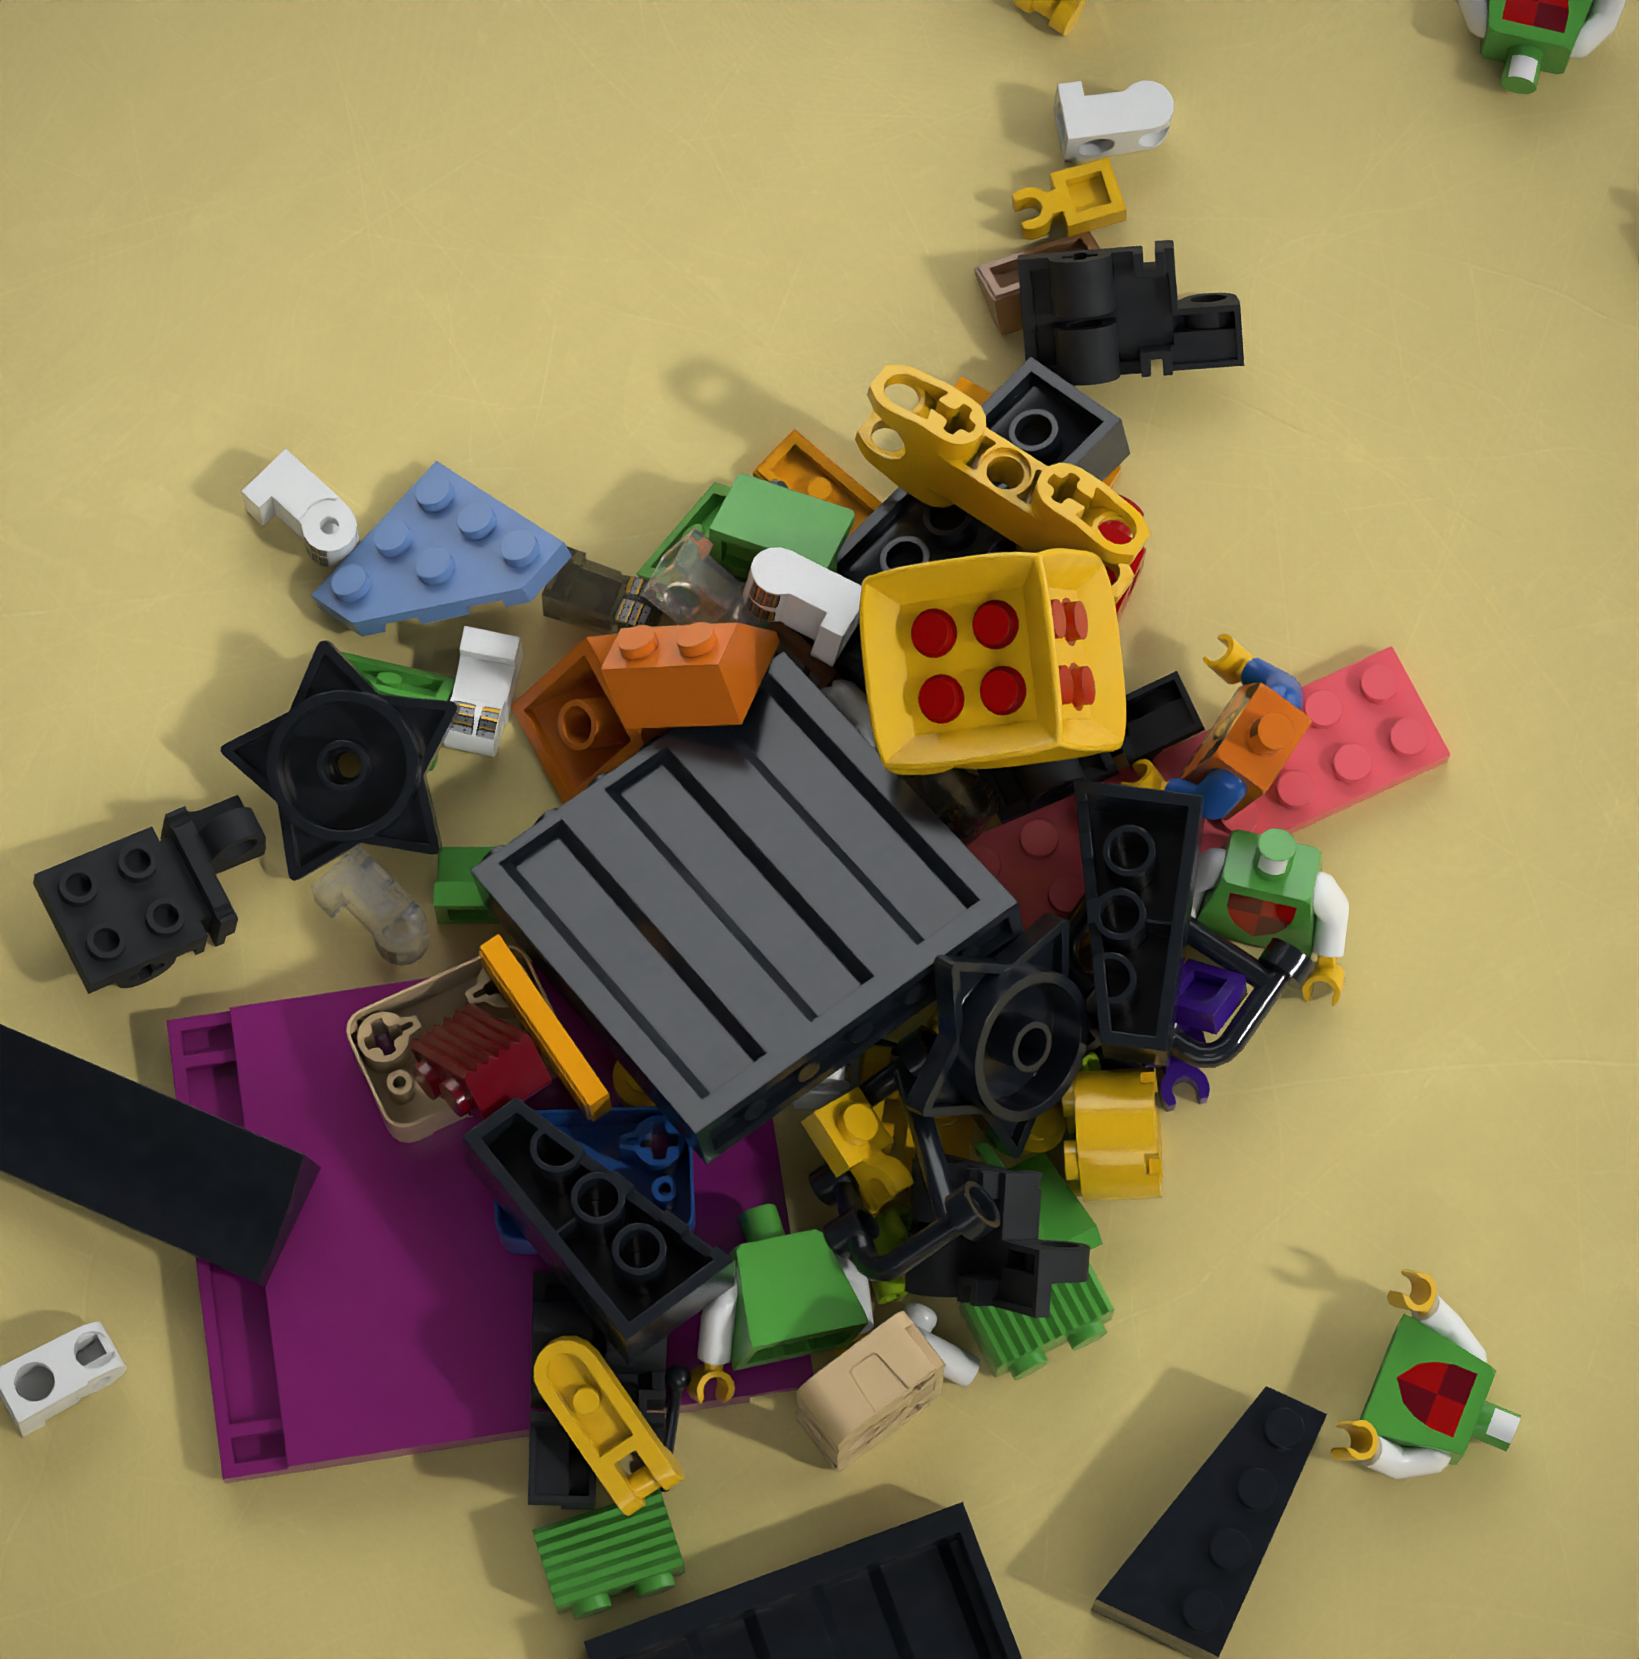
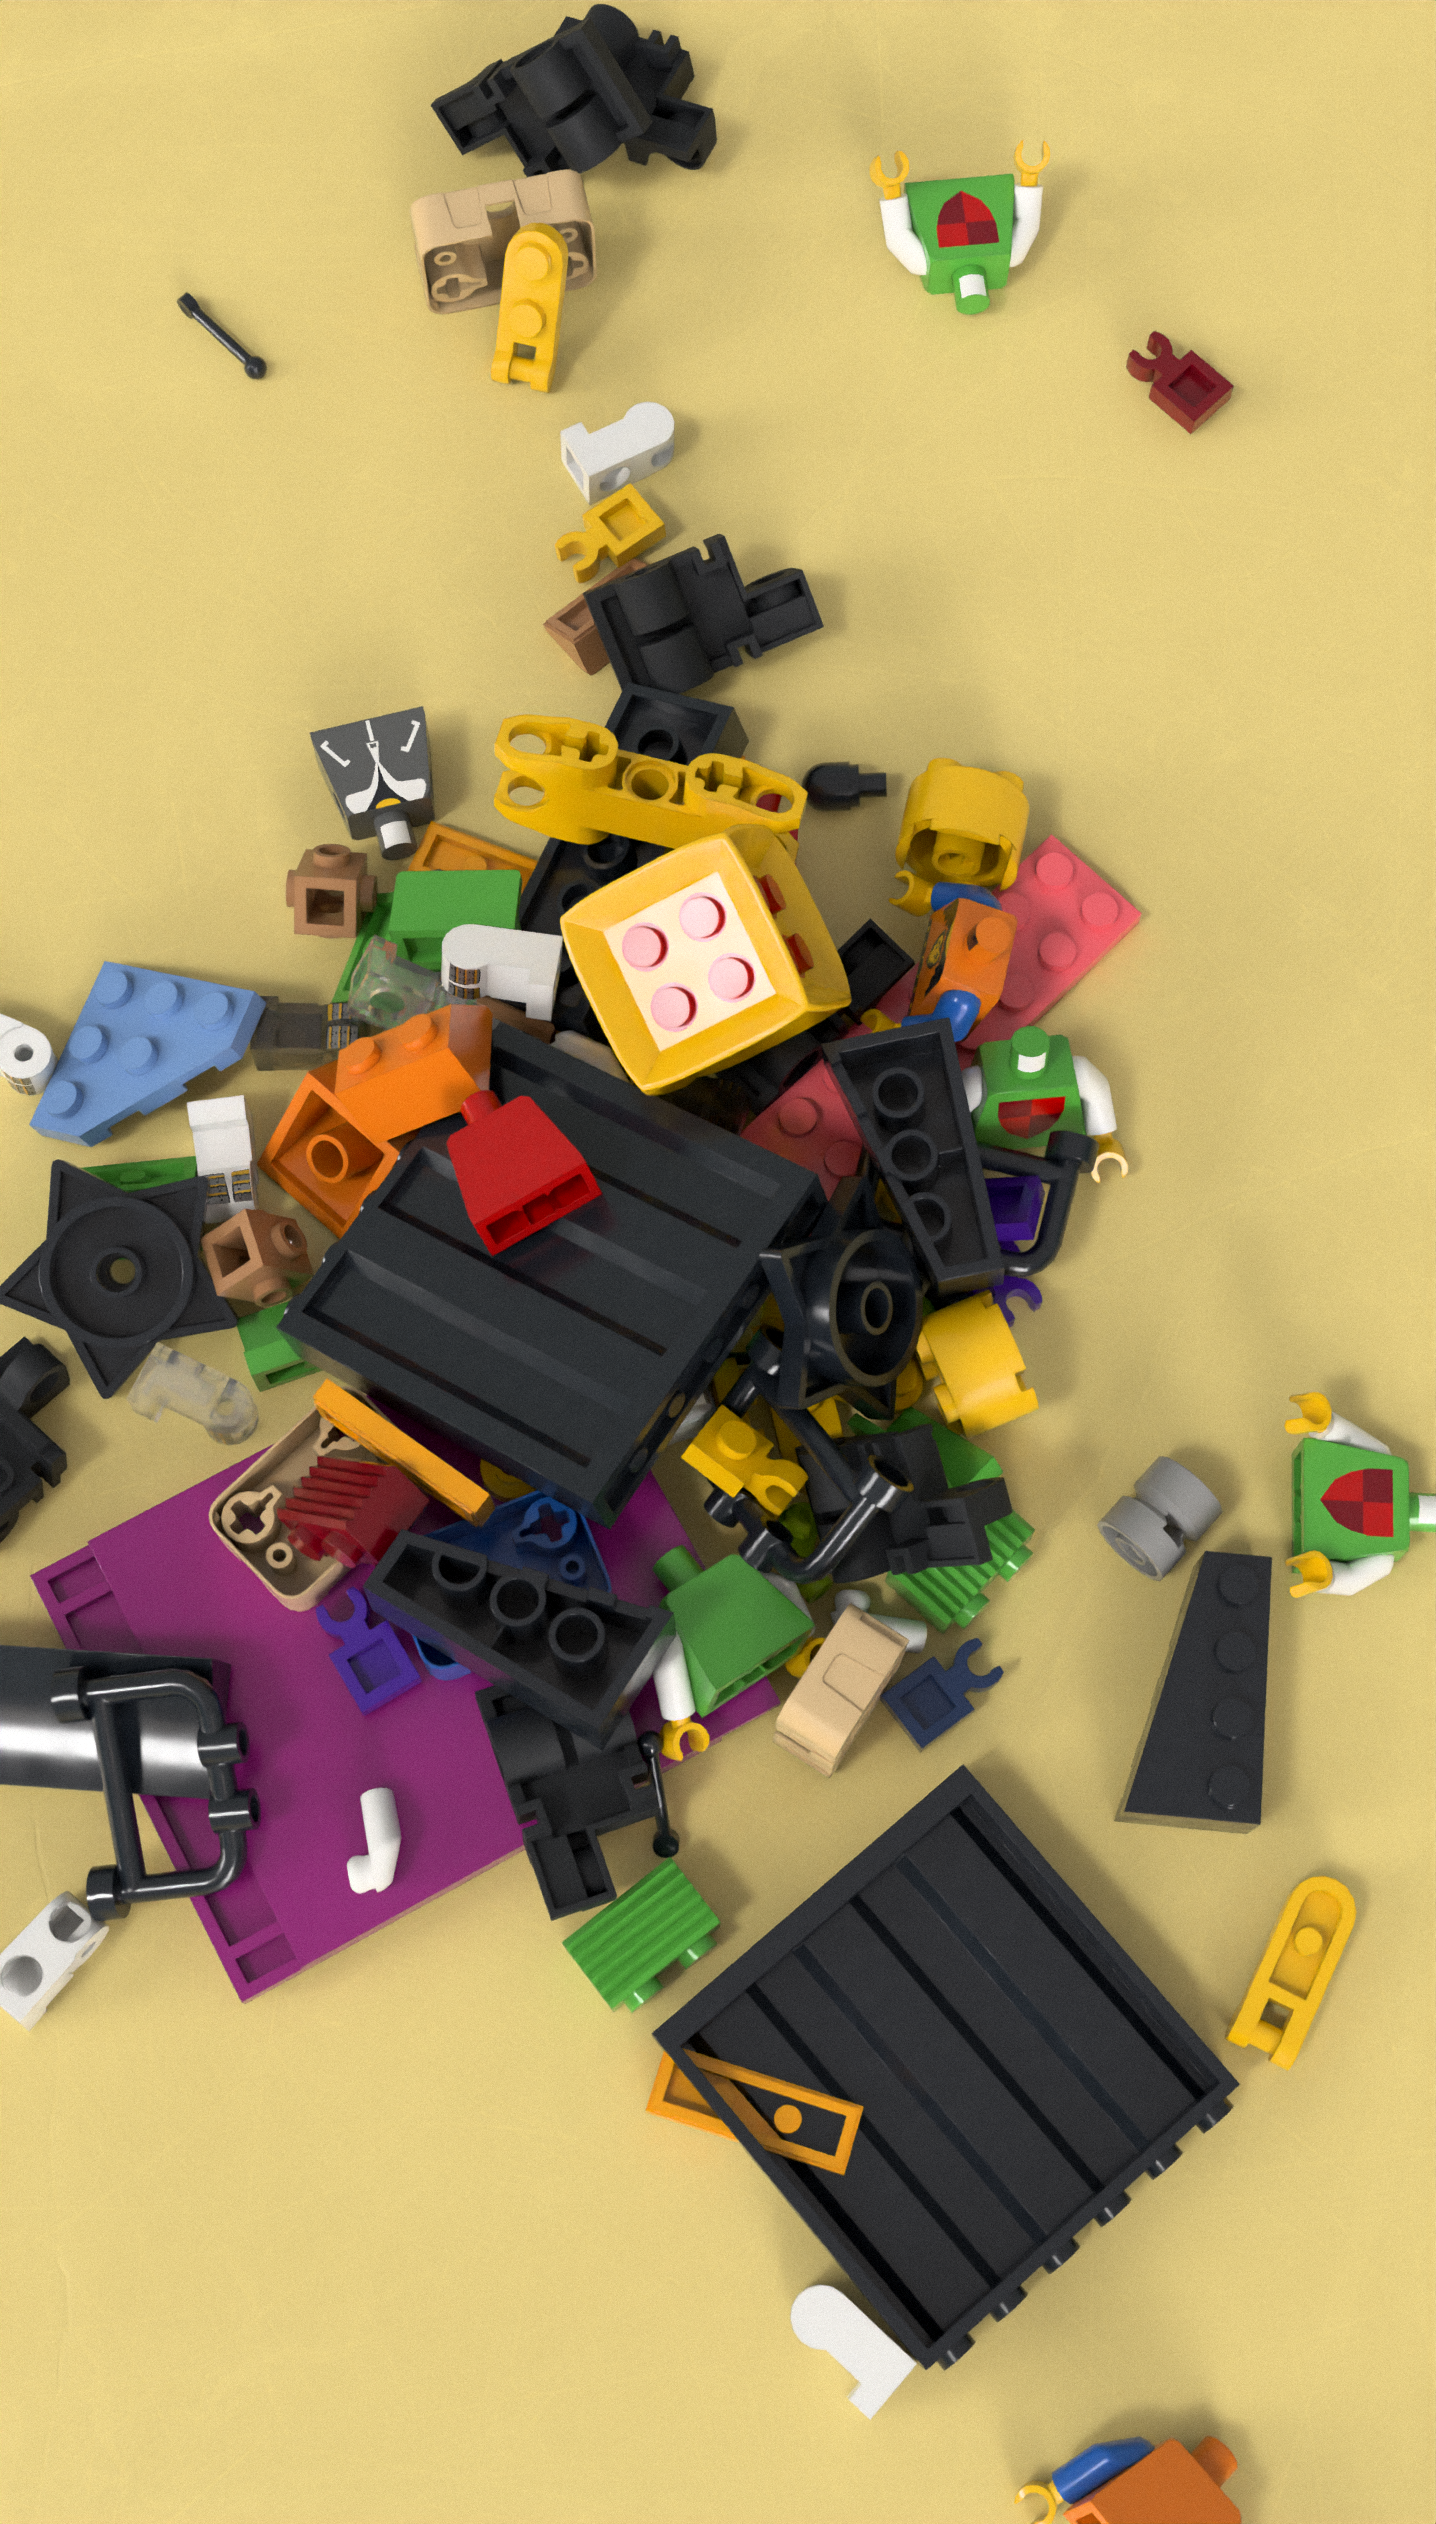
camera: 20 degrees left, 0 degrees up
(283, 1237) = (220, 1745): none -> black bar
(401, 1379) = (383, 1843): none -> white arm
(450, 1209) = (371, 1659): none -> dark purple plate
(478, 796) = (257, 1257): none -> medium nougat brick
(603, 1421) = (597, 1813): yellow plate -> none
(672, 468) = (331, 892): none -> medium nougat brick
(740, 800) = (515, 1169): none -> red torso
(761, 371) = (380, 777): none -> dark grey torso
(960, 1435) = (933, 1699): none -> dark blue plate
(1204, 528) = (840, 786): none -> black cylinder
(1241, 1340) = (1165, 1512): none -> light grey wheel
(1303, 611) = (963, 825): none -> yellow brick

